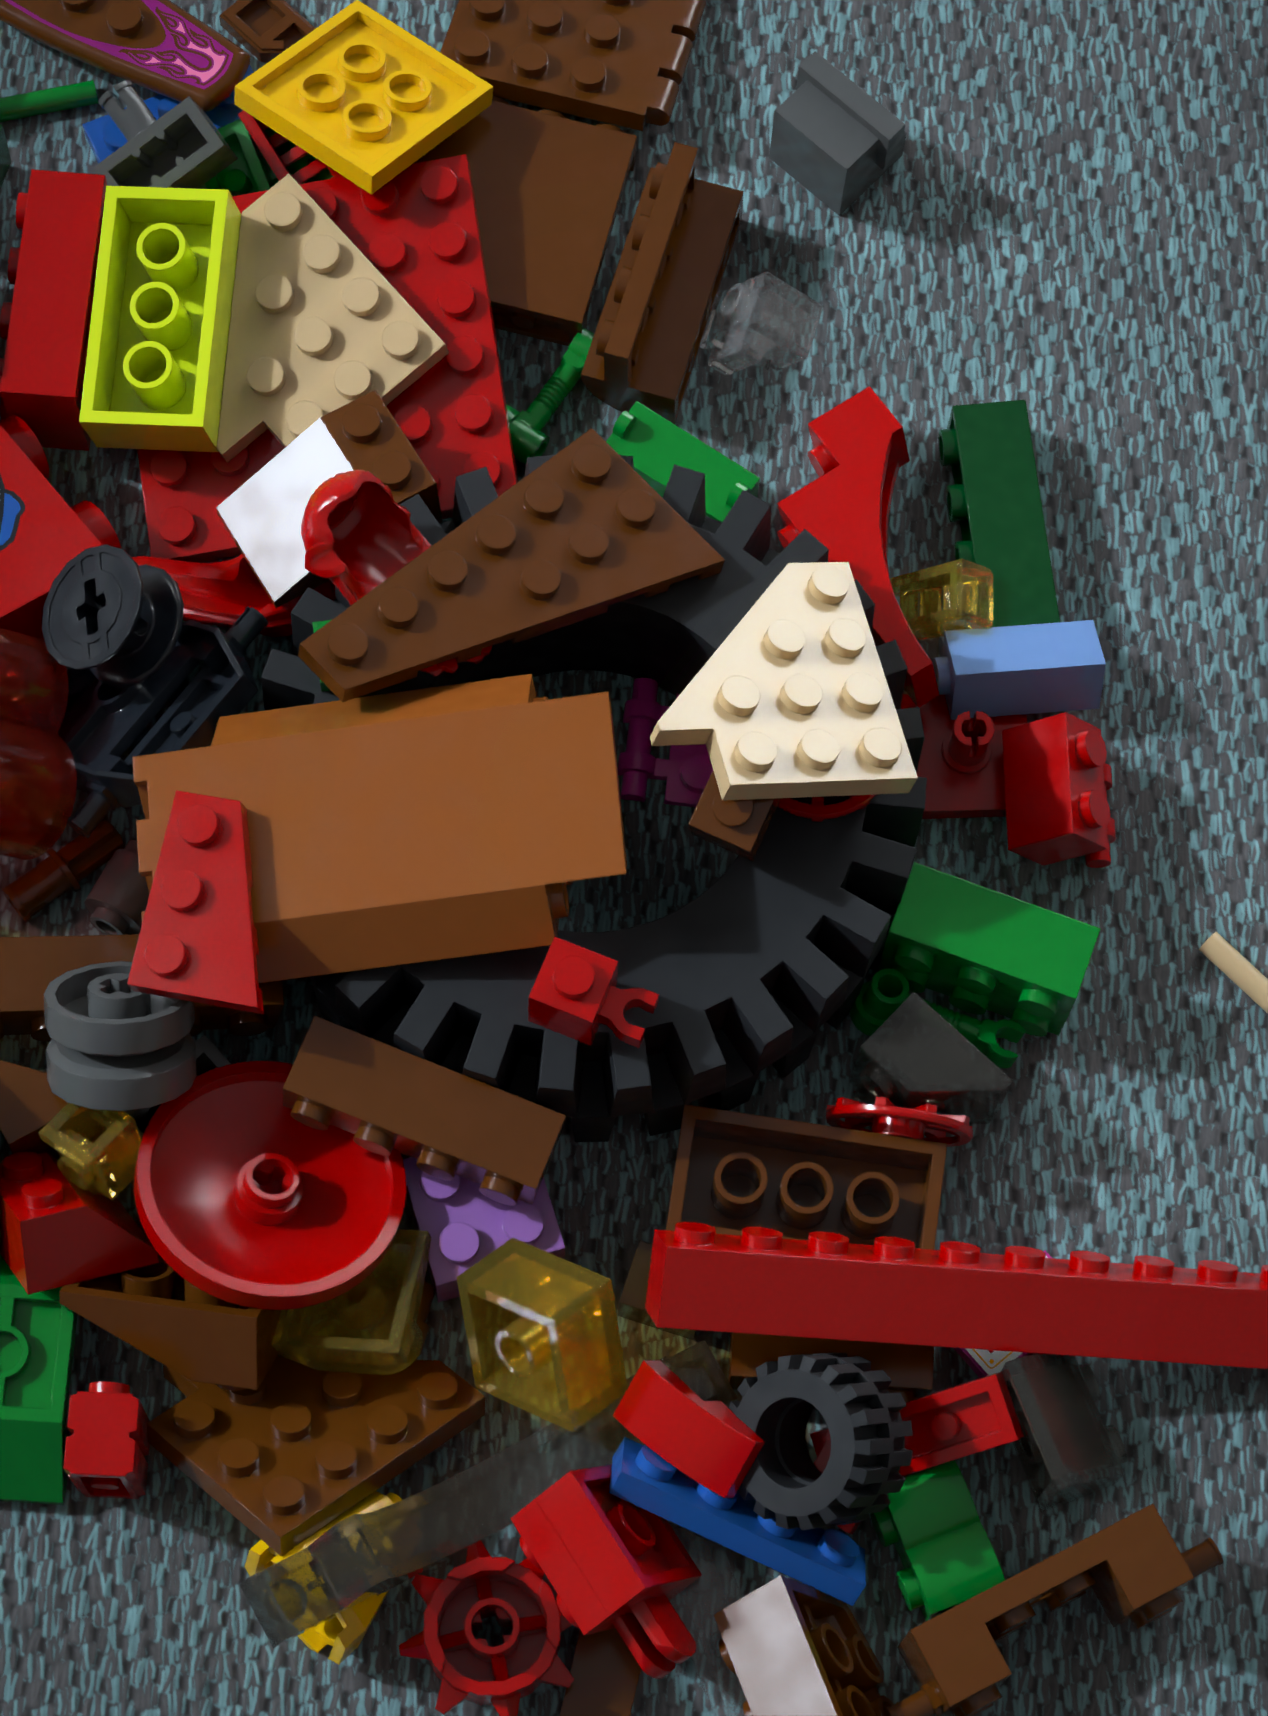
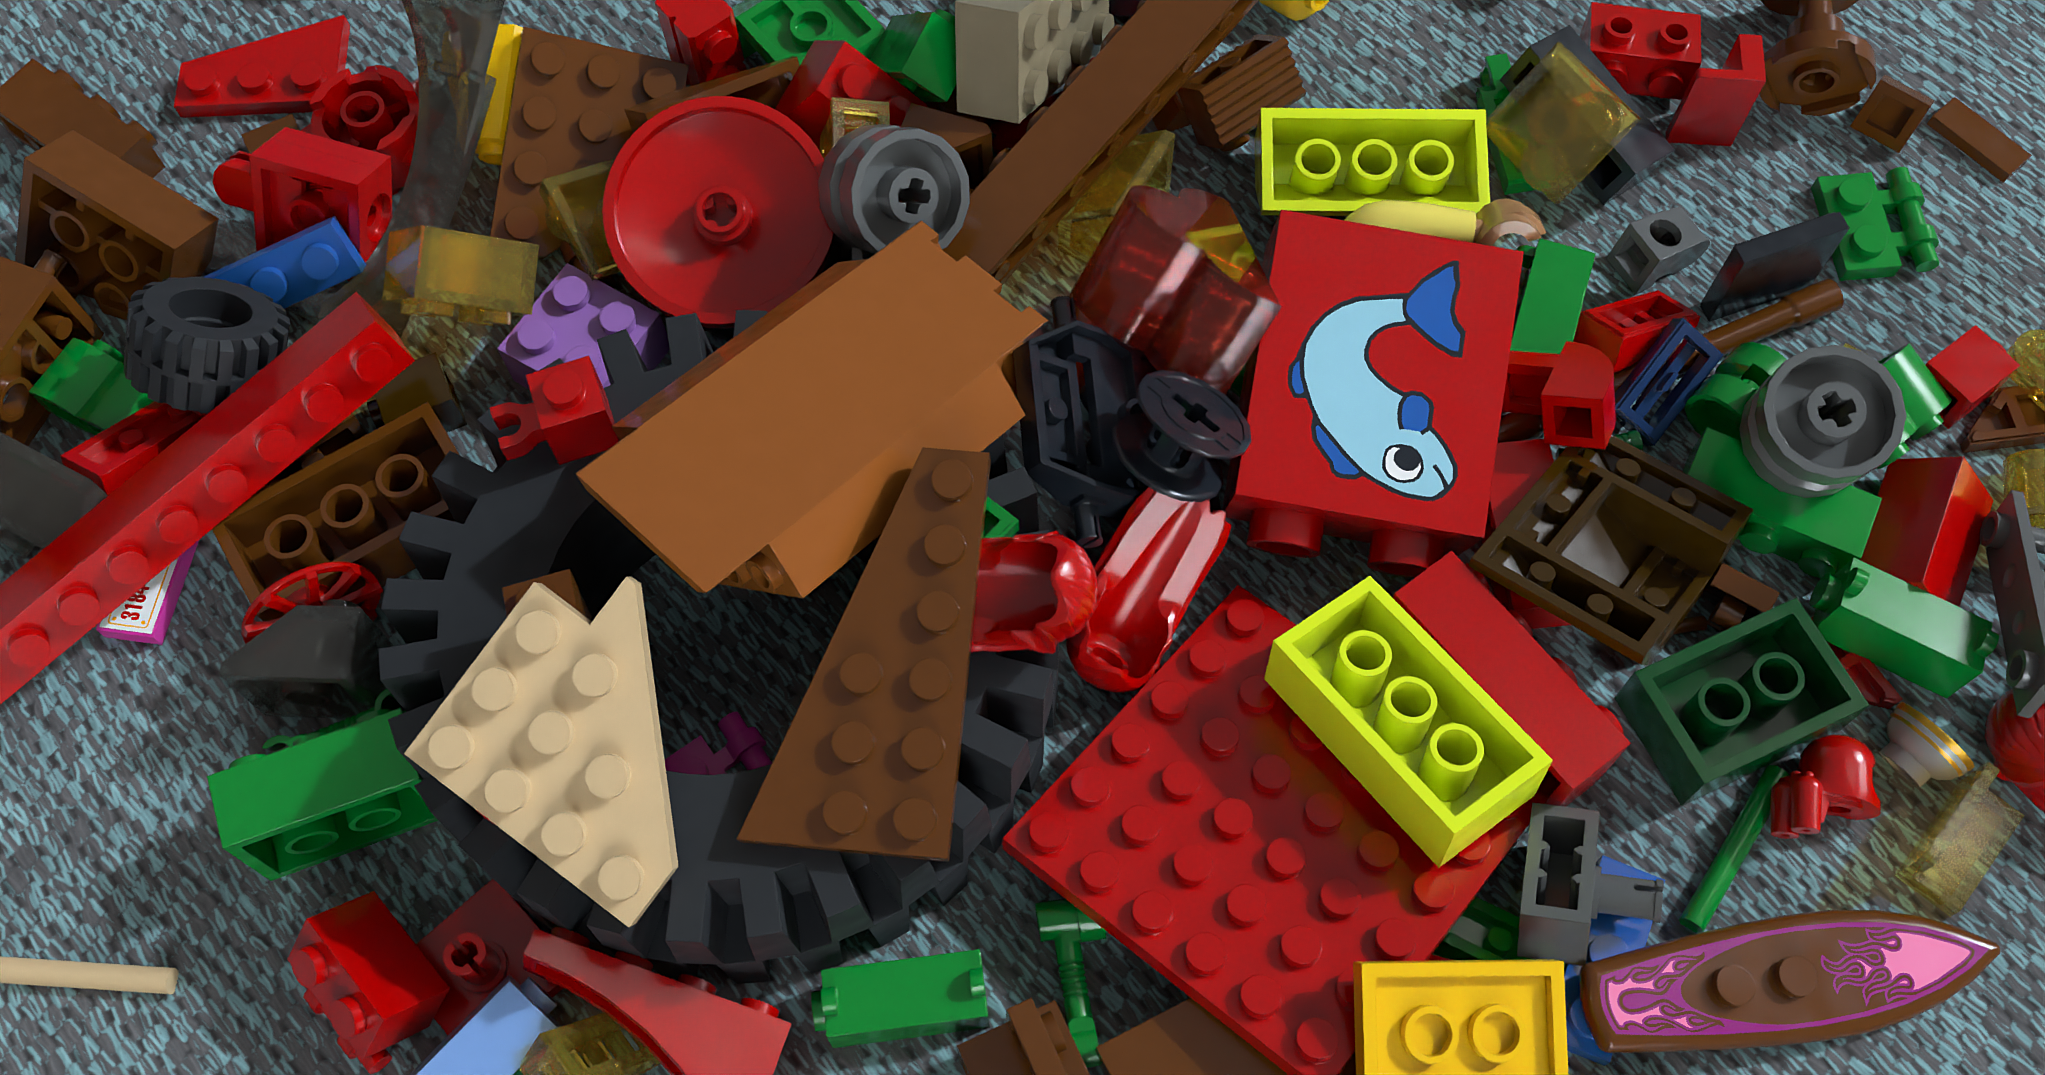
camera: 145 degrees right, 5 degrees down
(199, 912) = (893, 249): red wing -> none
(269, 507) = (1128, 691): slope -> none
(310, 324) = (1291, 828): tan wing -> none
(422, 1111) = (702, 281): reddish brown brick -> none
(684, 1430) = (289, 286): red slope -> none

